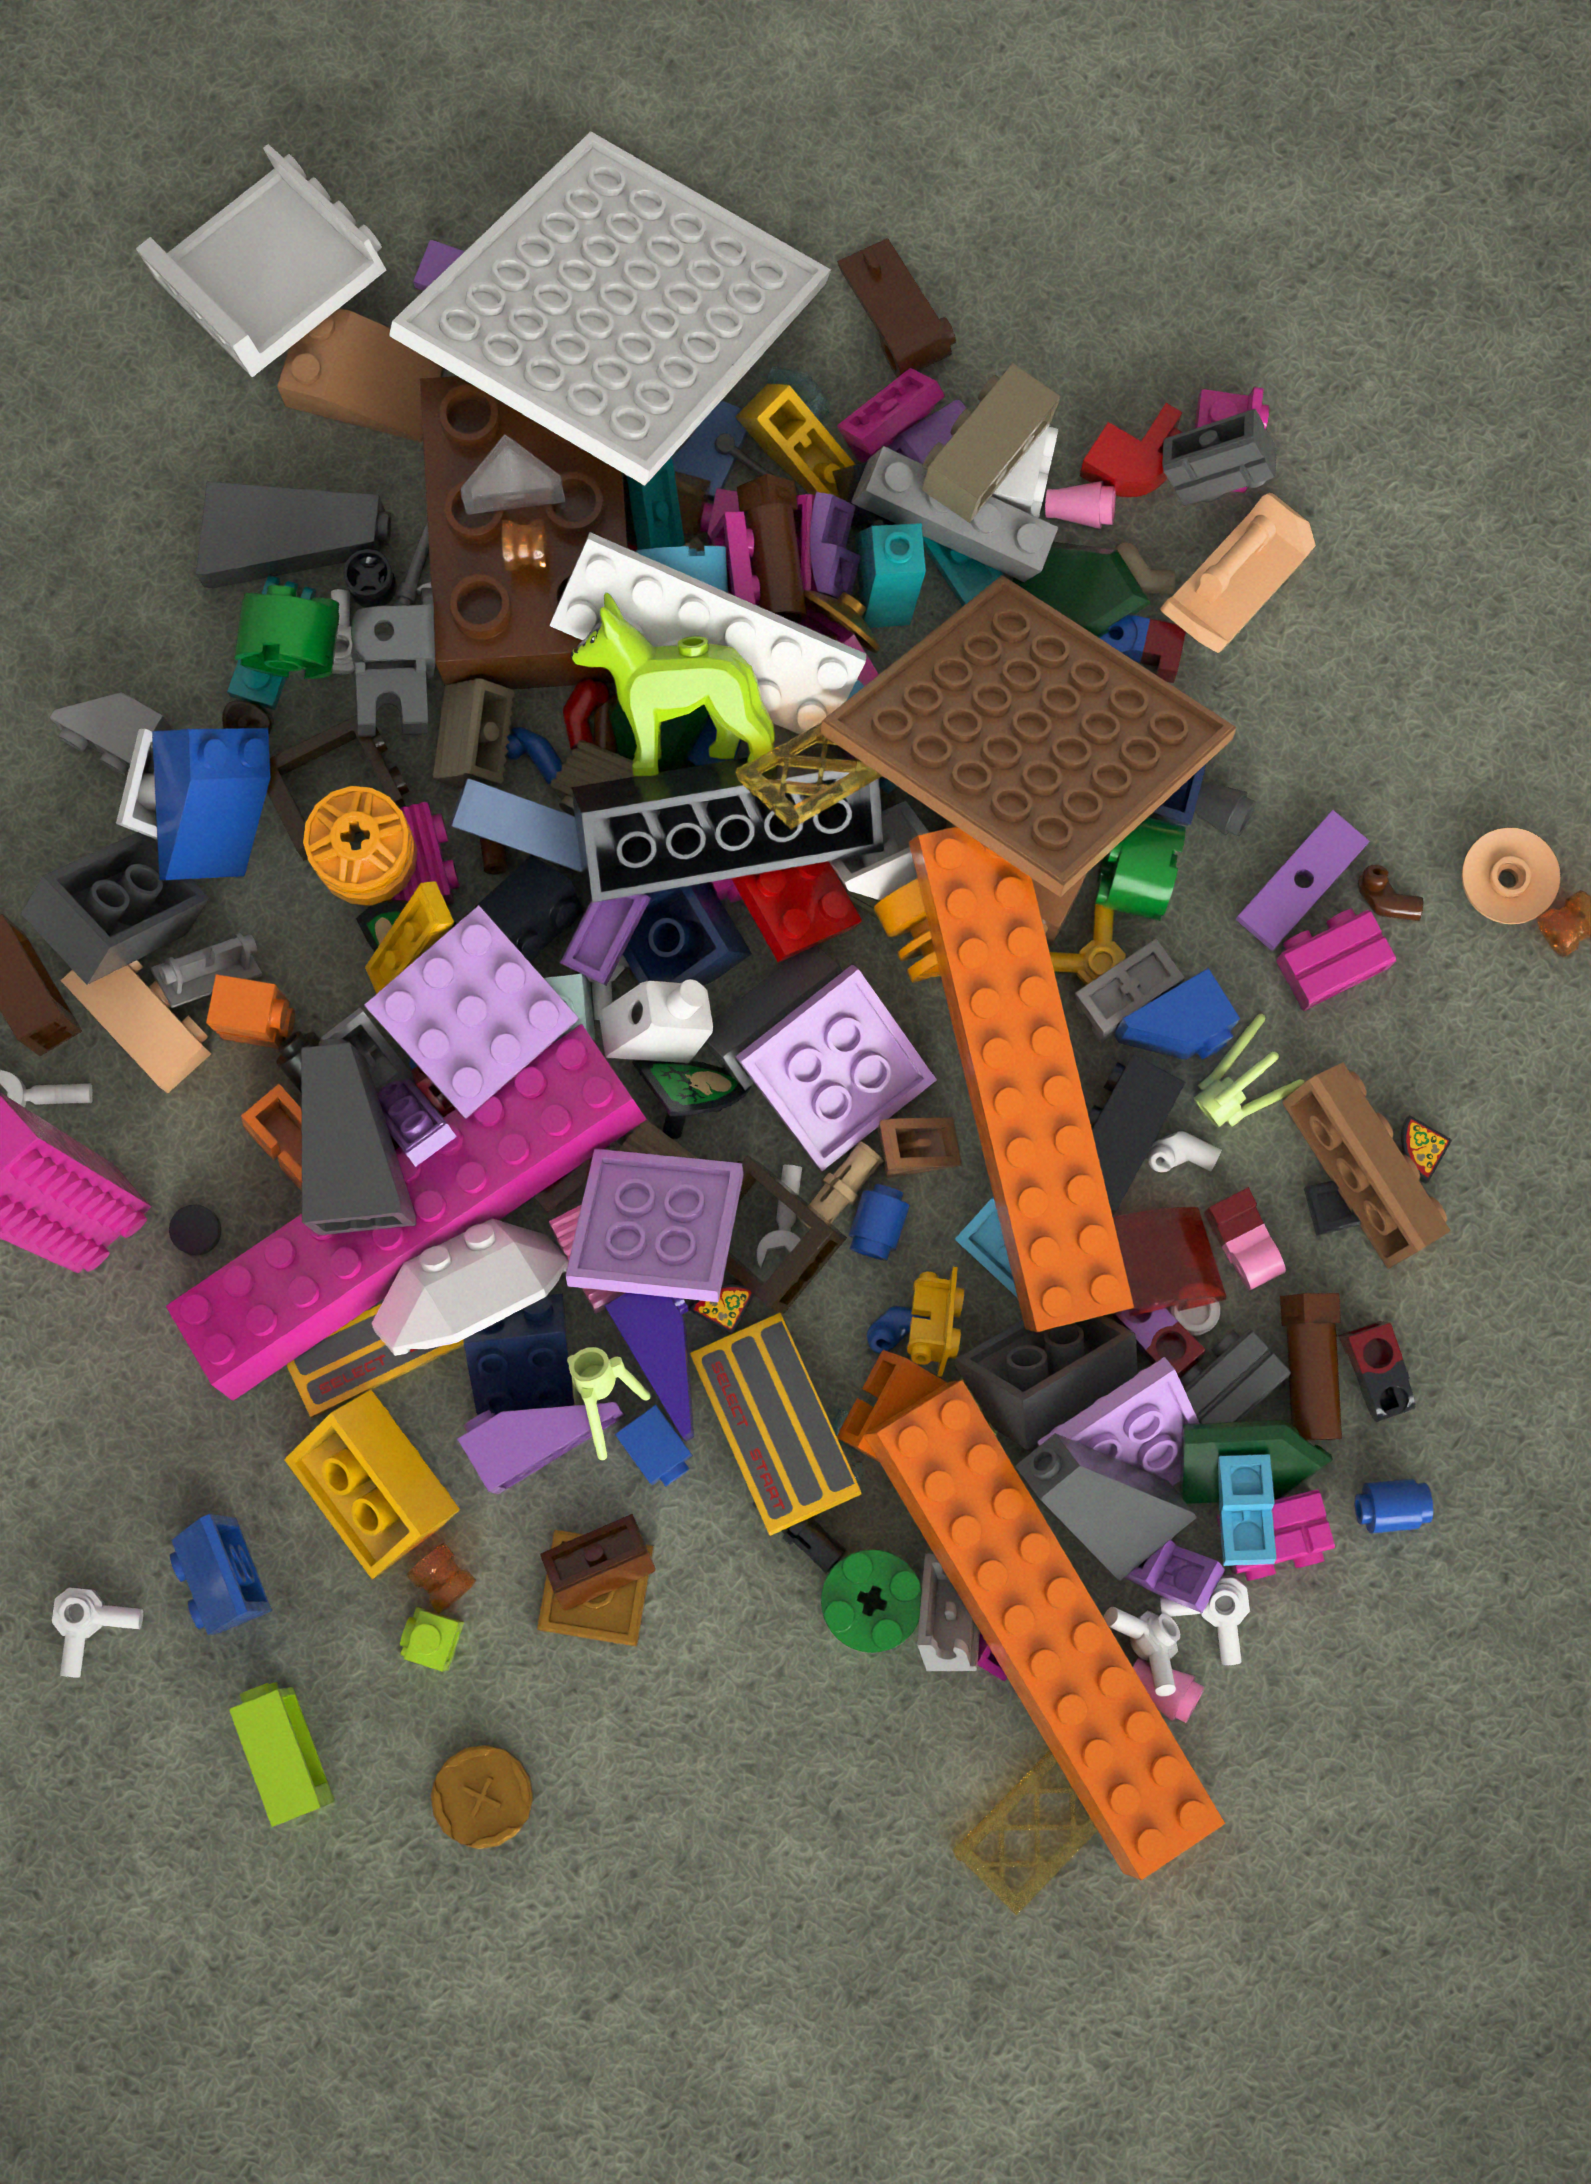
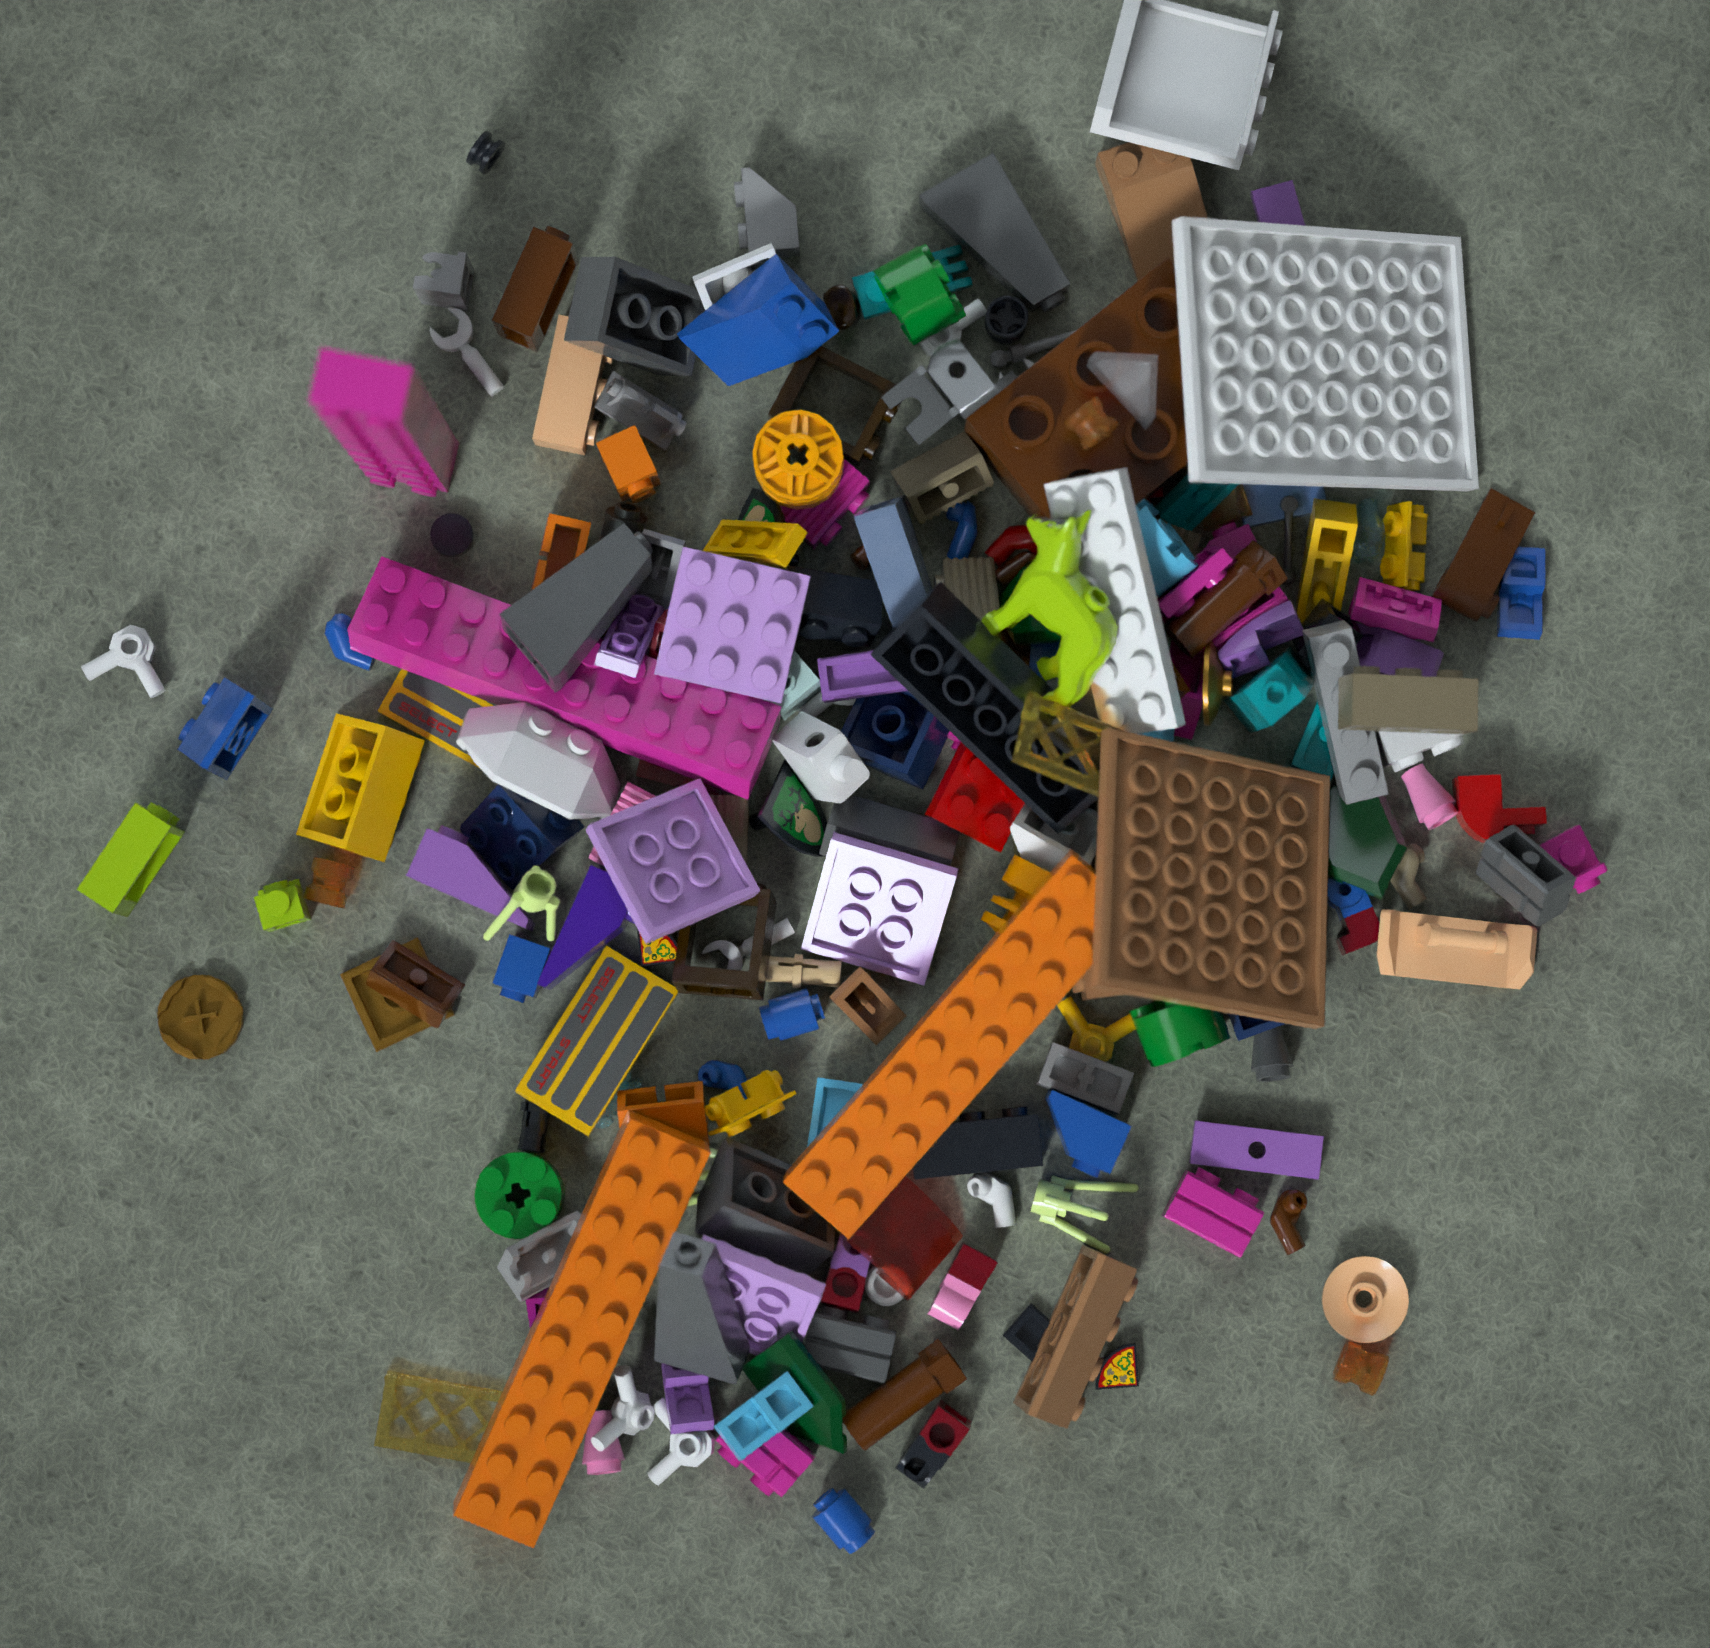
camera: 55 degrees right, 5 degrees up
(214, 1405) = (338, 639): none -> blue arm
(822, 360) = (1404, 526): none -> yellow hinge
(965, 306) = (1521, 595): none -> blue slope

